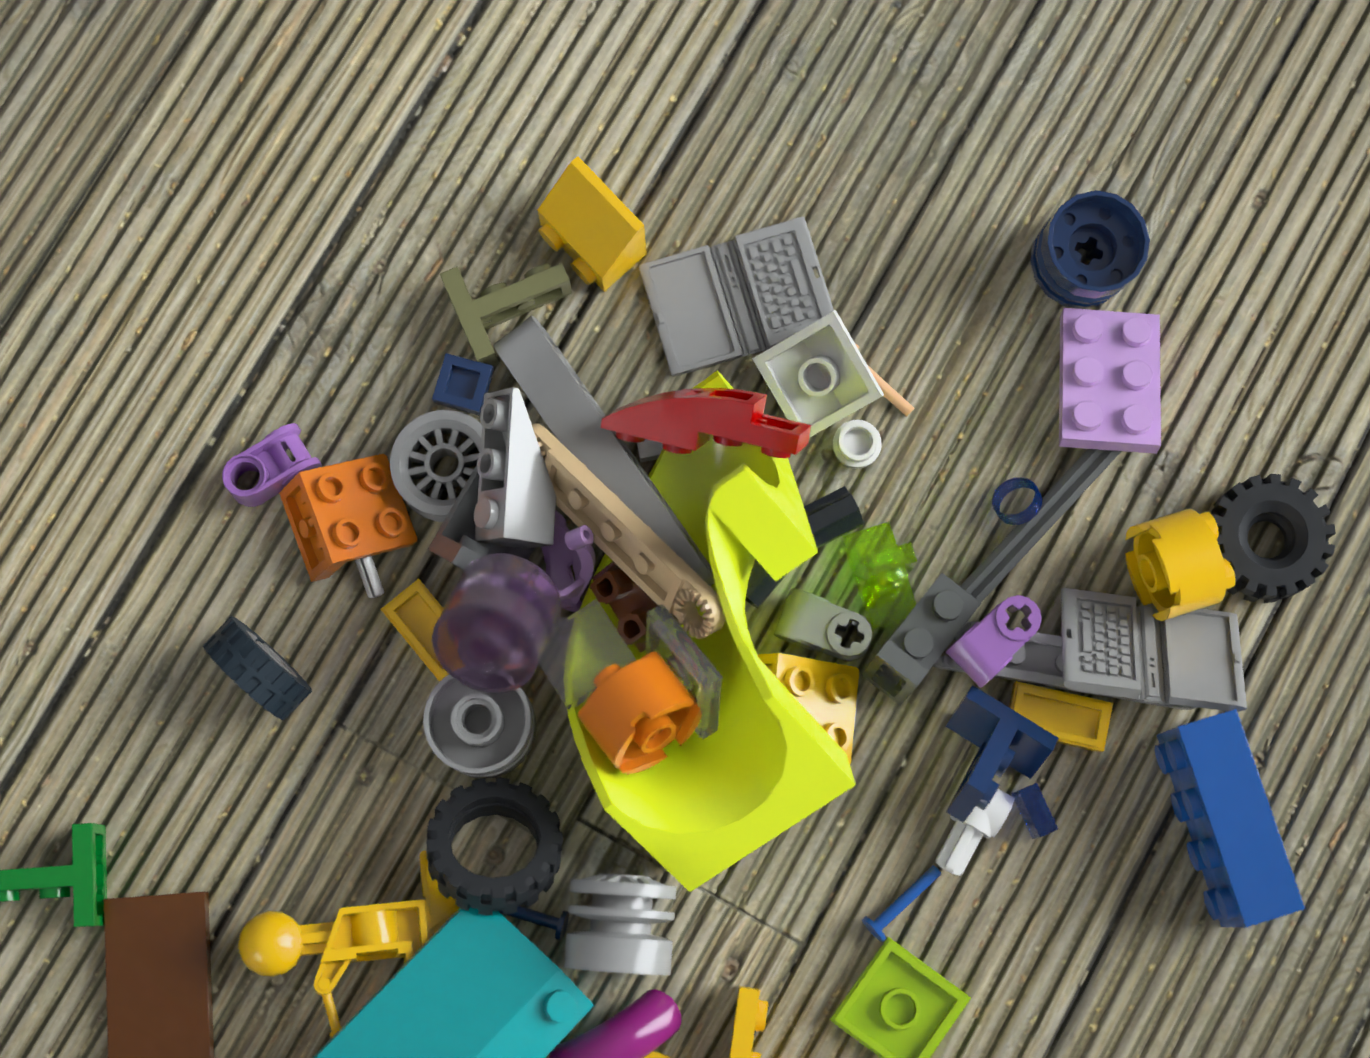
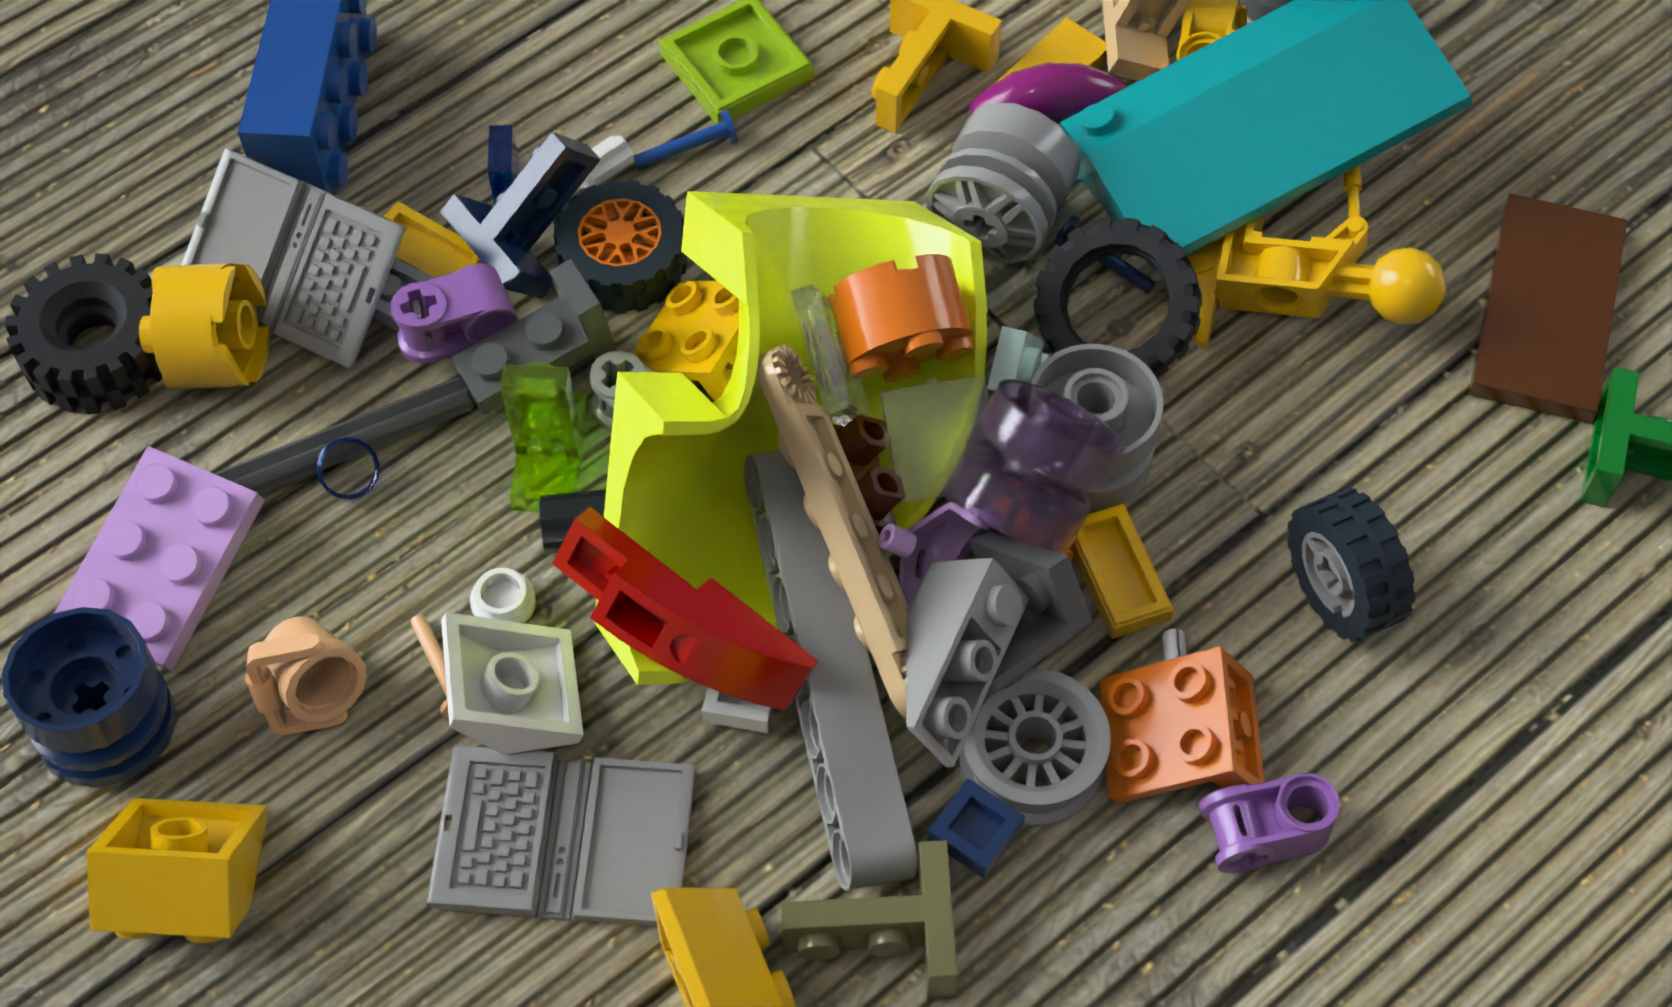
camera: 160 degrees left, 20 degrees down
(548, 749) = (1016, 357): none -> light aqua plate
(907, 772) = (618, 217): none -> black wheel
(958, 330) = (313, 673): none -> light nougat piece
(973, 177) = (175, 869): none -> yellow slope

